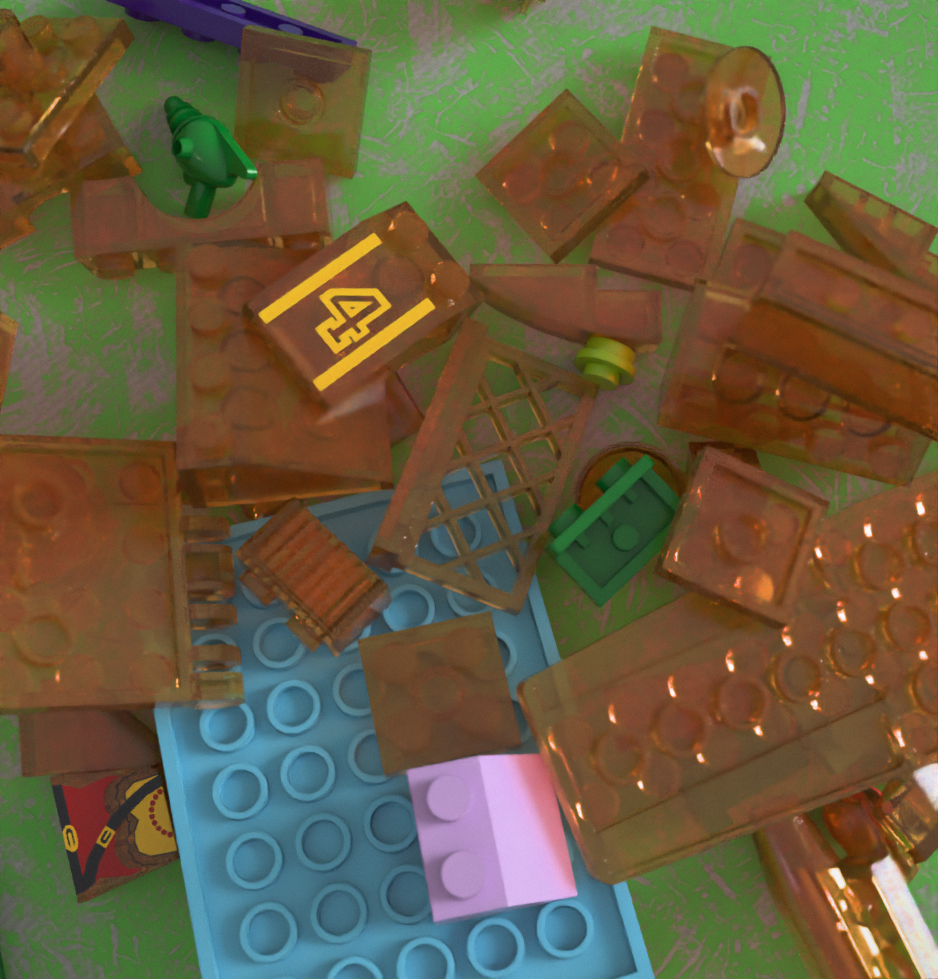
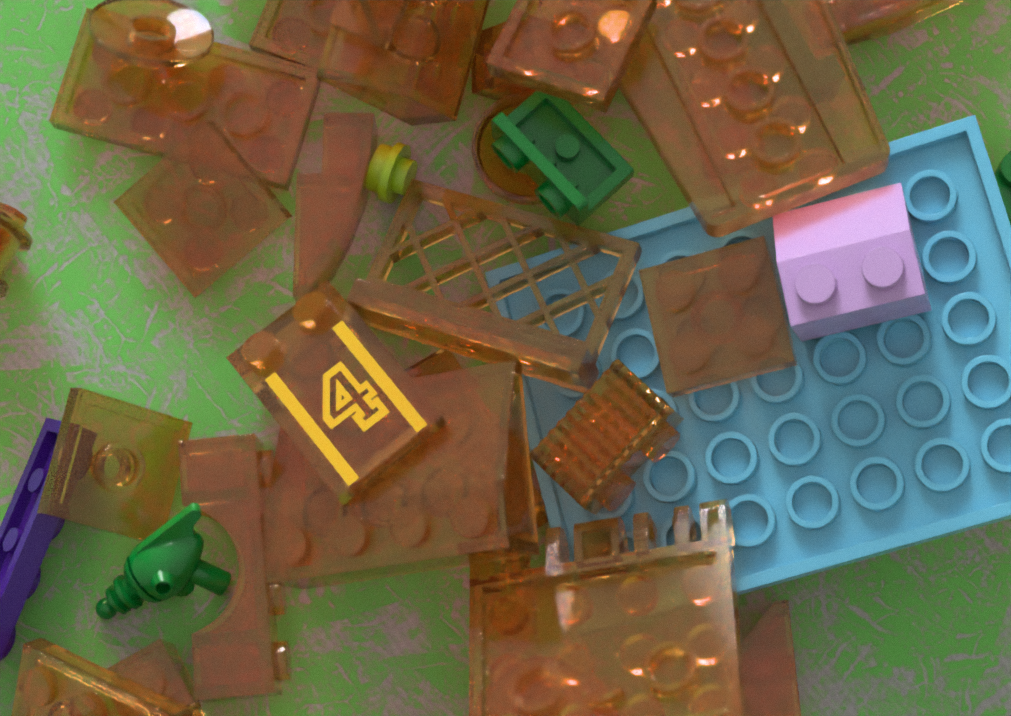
camera: 85 degrees left, 5 degrees down
(114, 825) = (847, 637): torso -> none

